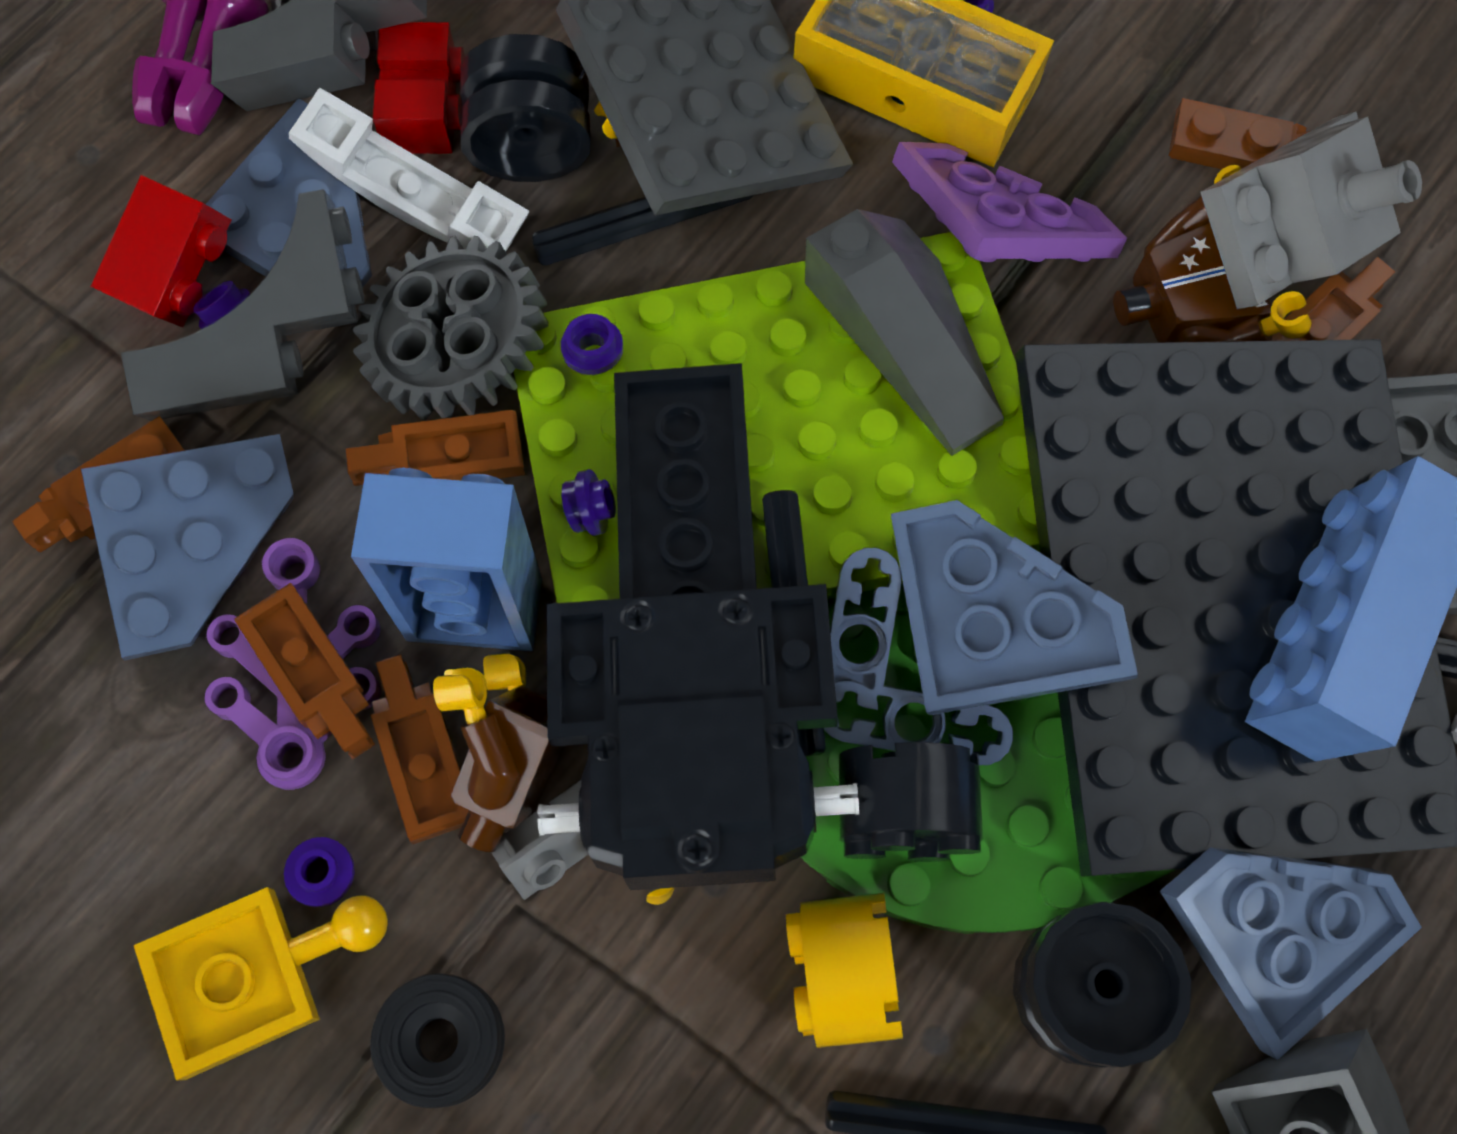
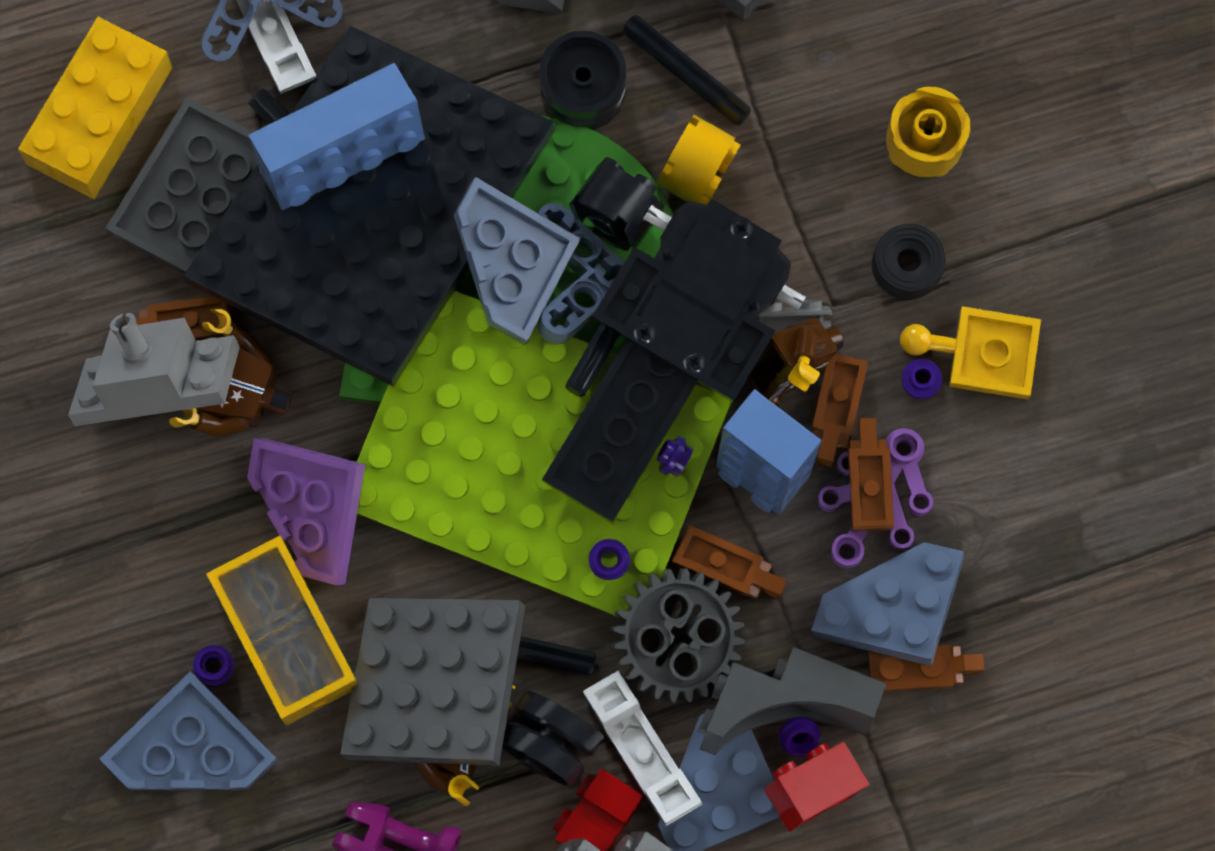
camera: 145 degrees left, 5 degrees up
(905, 320) = (424, 464): dark grey wedge -> none
(1226, 136) = (123, 466): dark orange hinge -> none
(1287, 935) = (473, 44): sand blue plate -> none

